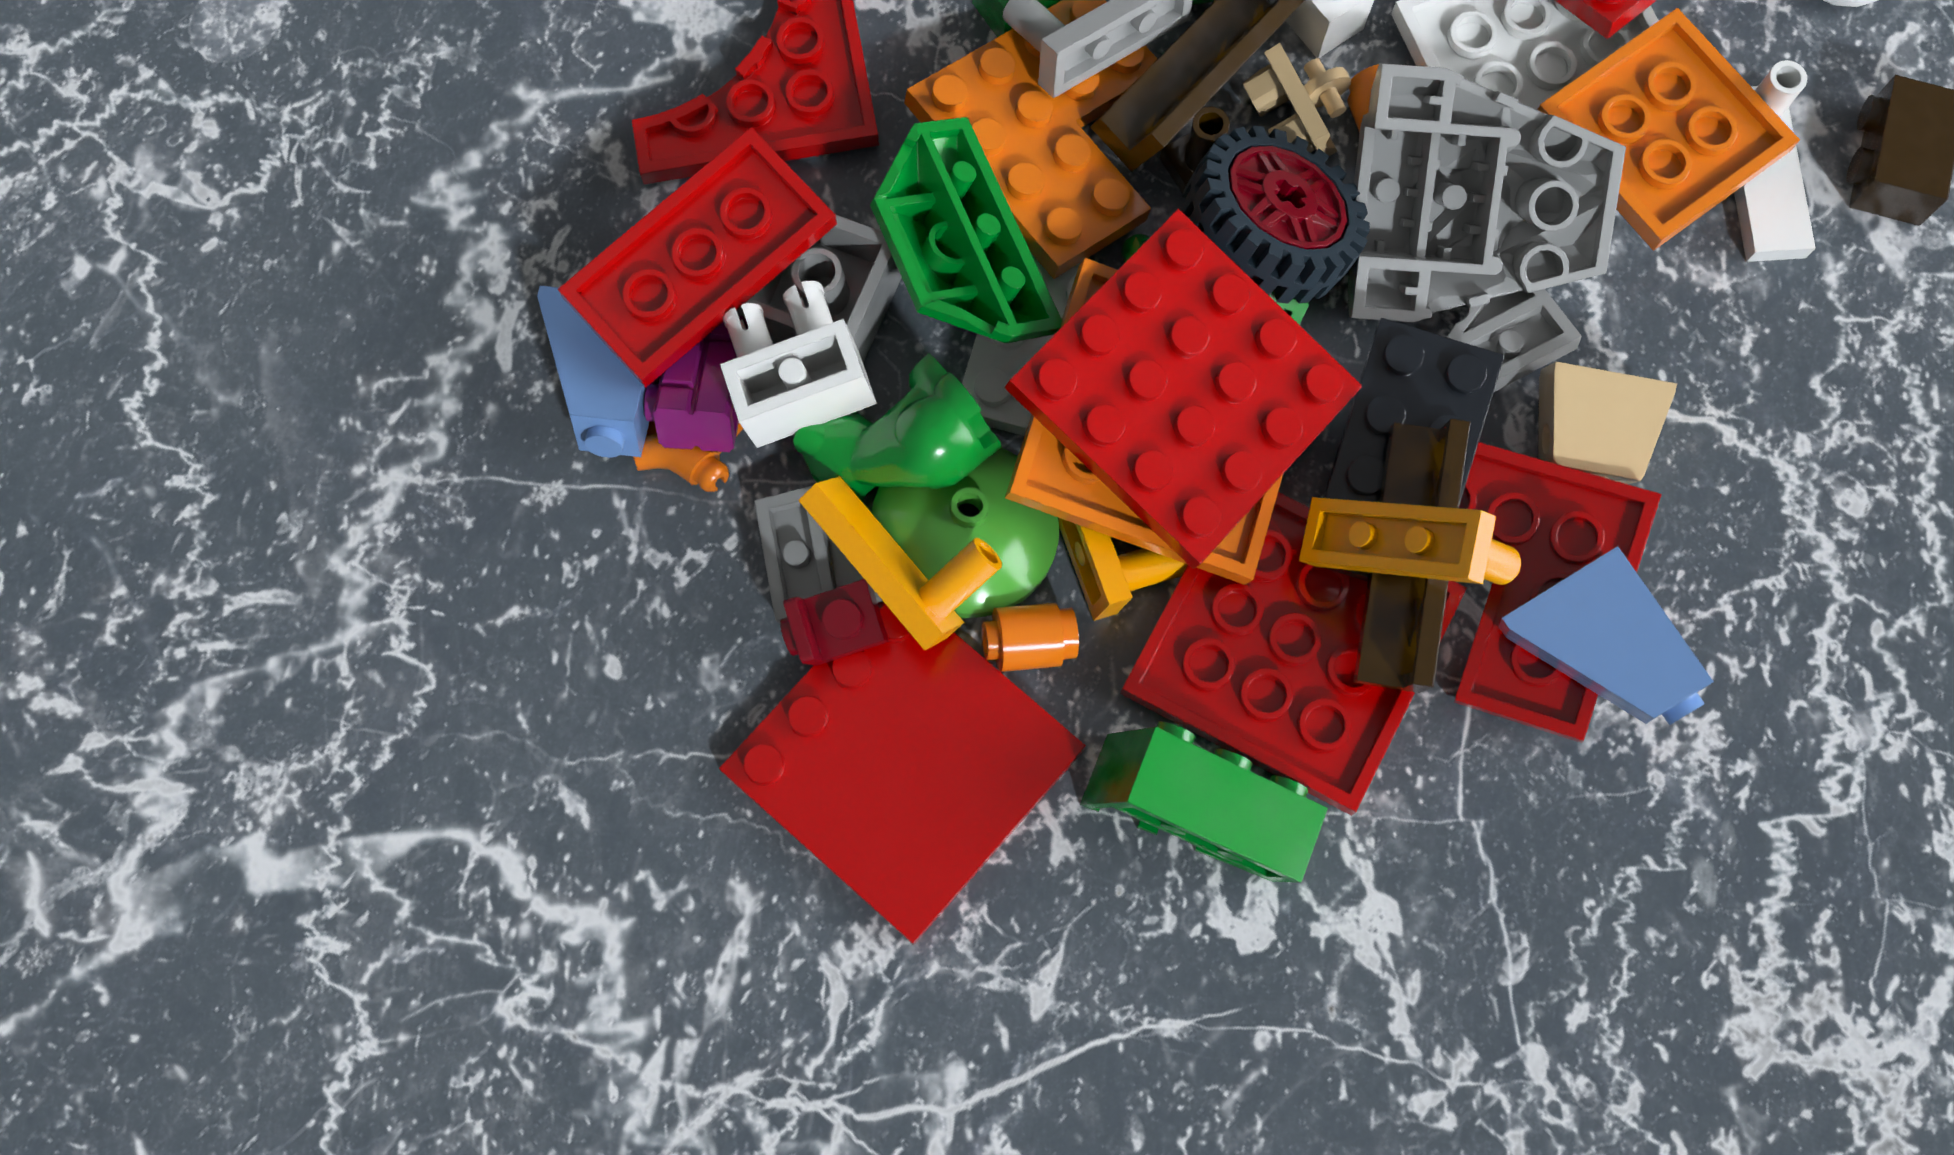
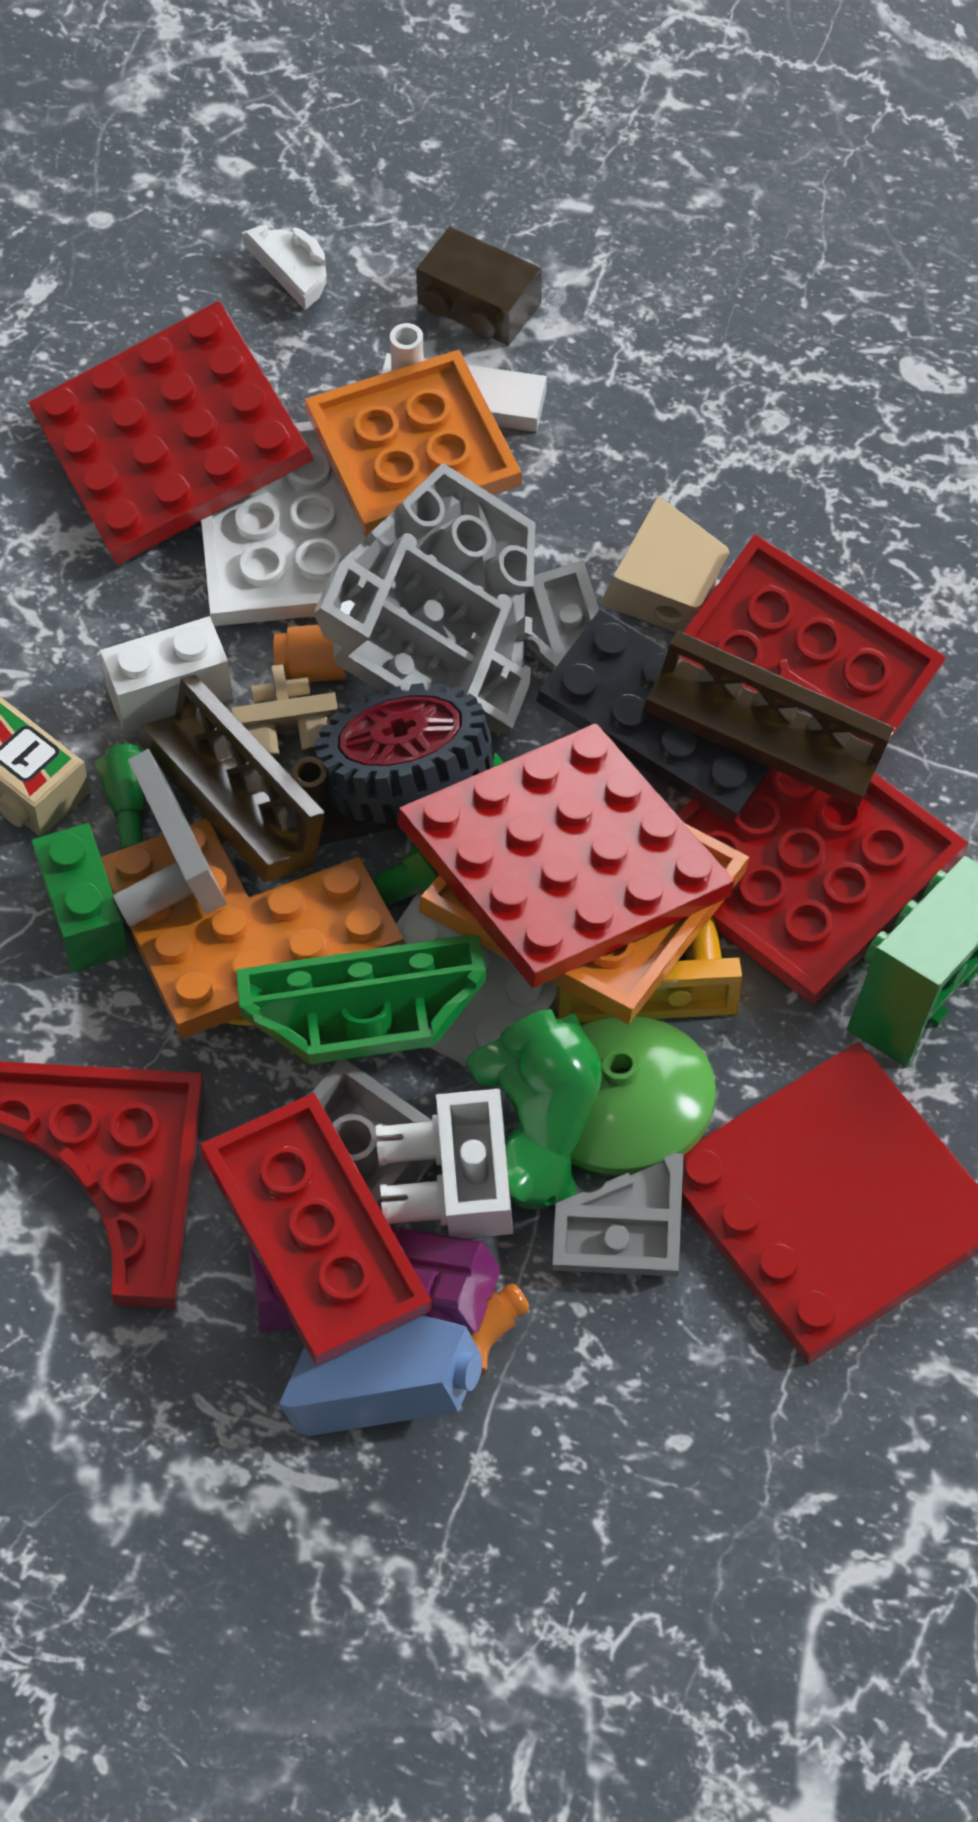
camera: 75 degrees left, 15 degrees down
(833, 623) = (702, 1207): dark red bracket -> none
(918, 603) = (708, 1123): light orange piece -> none
(1030, 636) = (748, 1058): orange brick -> none
(1407, 541) = (760, 718): light orange piece -> none
(1613, 640) = (873, 601): medium blue slope -> none

